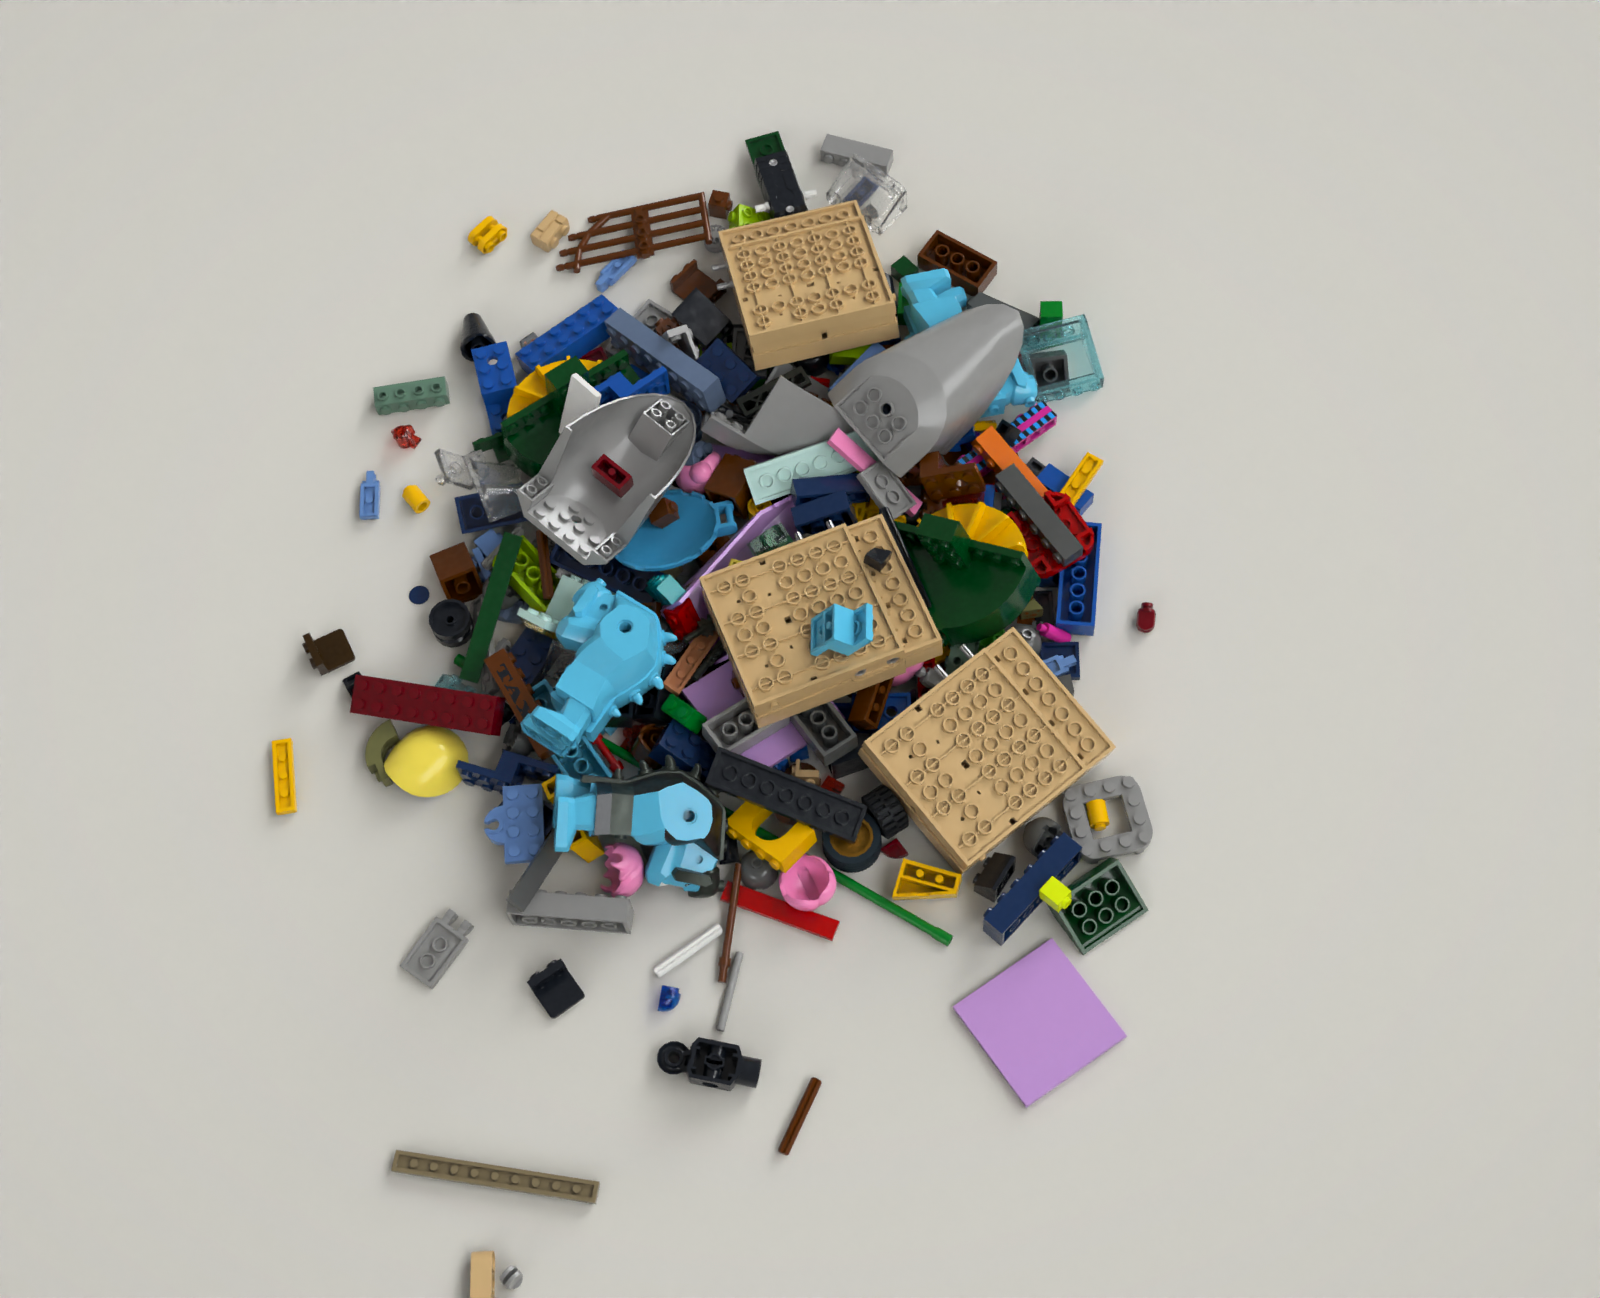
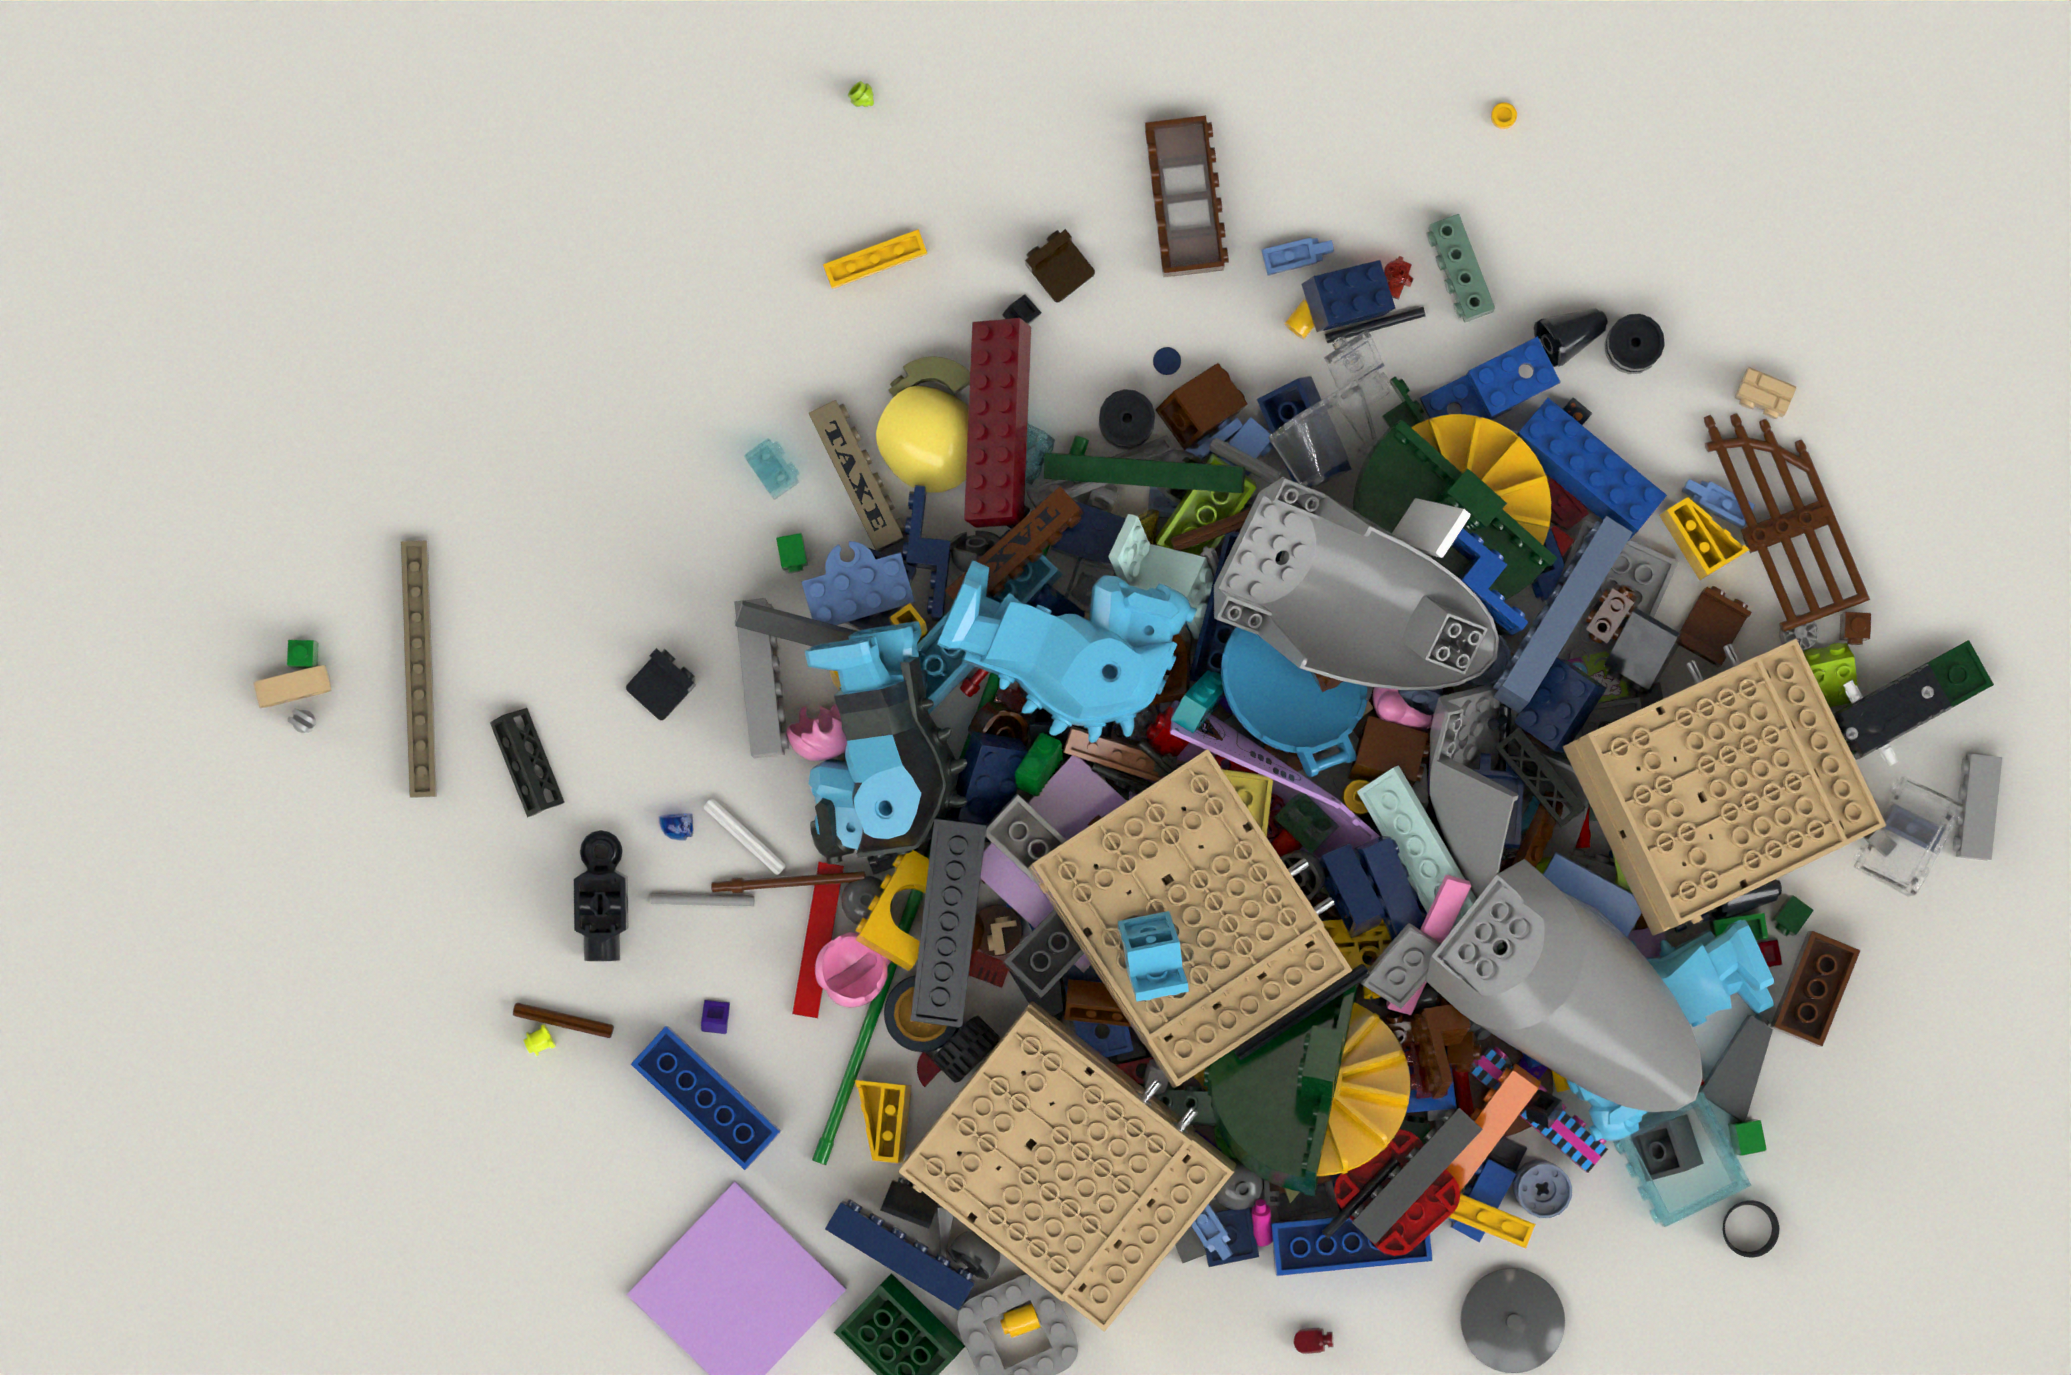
camera: 75 degrees right, 20 degrees up
(161, 764) = (861, 95): none -> lime plate
(306, 559) = (1186, 196): none -> clear window
(317, 355) = (1503, 115): none -> yellow tile
(408, 464) = (1348, 296): none -> dark blue brick
(415, 876) = (770, 469): none -> clear light blue brick
(434, 464) = (1376, 324): none -> black bar
(436, 818) = (856, 475): none -> dark tan brick
(437, 949) = (684, 520): light grey tile -> none
(458, 1268) = (302, 653): none -> green brick
(482, 874) = (792, 552): none -> green brick
(487, 235) = (1728, 308): yellow brick -> none
(494, 299) = (1649, 346): none -> black wheel
(590, 1108) = (522, 763): none -> pearl dark grey fence
(612, 476) = (1354, 591): dark red brick -> none
(636, 283) = (1700, 538): none -> yellow wedge
(684, 337) = (1599, 625): light grey bracket -> none
(811, 1136) = (539, 1040): none -> neon yellow brick
(822, 998) = (715, 1017): none -> dark purple slope
(877, 558) = (1276, 980): black slope -> none
(883, 1013) = (706, 1097): none -> blue brick
(1020, 859) = (945, 1224): none -> light grey piece
(1051, 561) = (1360, 1197): none -> black bar
(1055, 894) = (887, 1288): neon yellow brick -> none
(1063, 447) = (1553, 1199): none -> sand blue wheel
(1114, 317) = (1774, 1233): none -> black tyre
(1153, 488) = (1512, 1320): none -> dark grey dish

